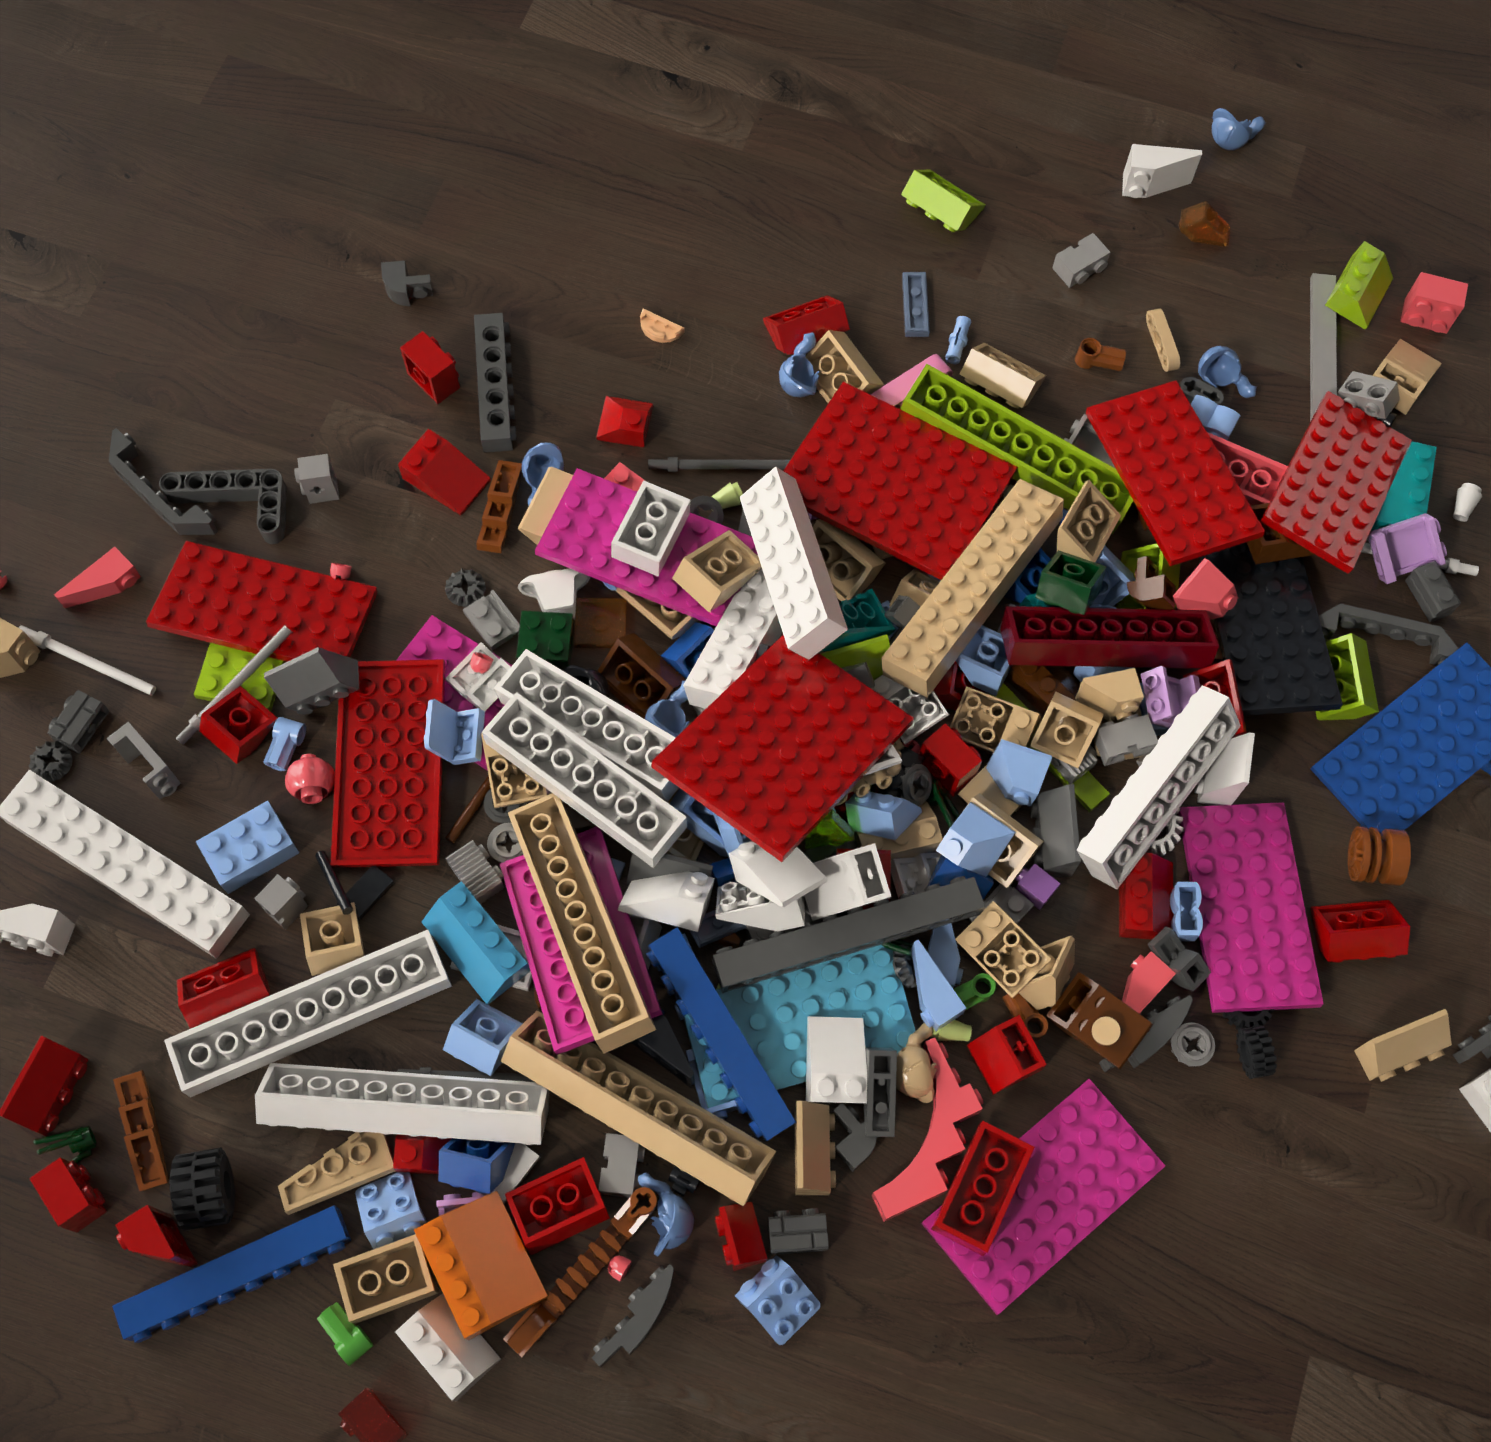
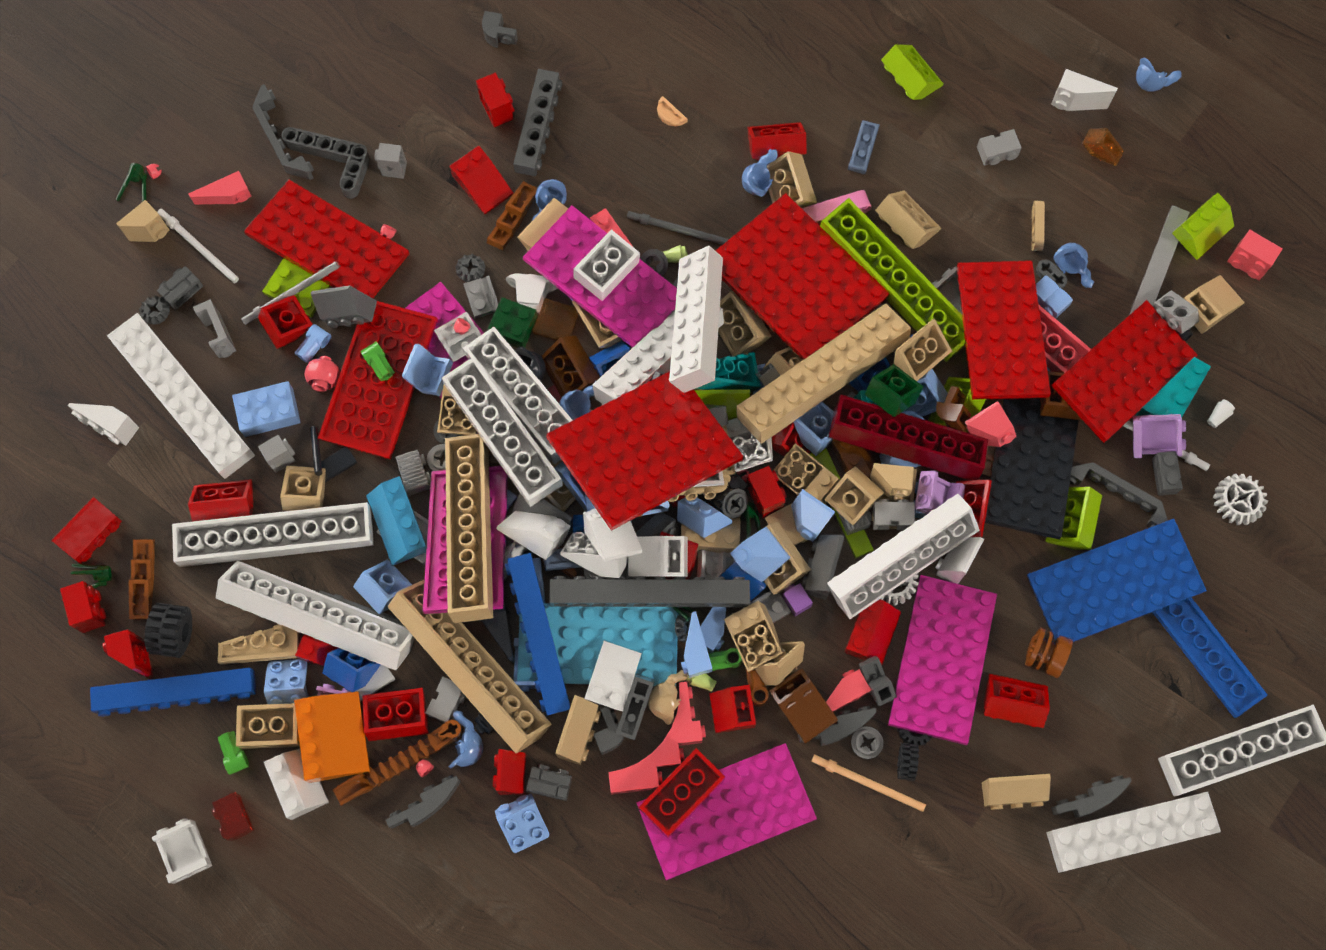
camera: 20 degrees right, 5 degrees up
(379, 735) = (376, 358): none -> bright green piece
(469, 811) = (422, 429): reddish brown bar -> none
(624, 421) = (622, 177): red slope -> none
(717, 570) = (644, 308): tan slope -> none
(829, 831) = (660, 517): clear neon green wing -> none
(958, 339) = (884, 183): light blue pin -> none
(1099, 355) = (987, 226): dark orange piece -> none
(1106, 1031) = (803, 714): tan tile -> none
(1160, 1090) = (831, 766): none -> light nougat bar
(1184, 904) = (896, 645): light blue brick -> none

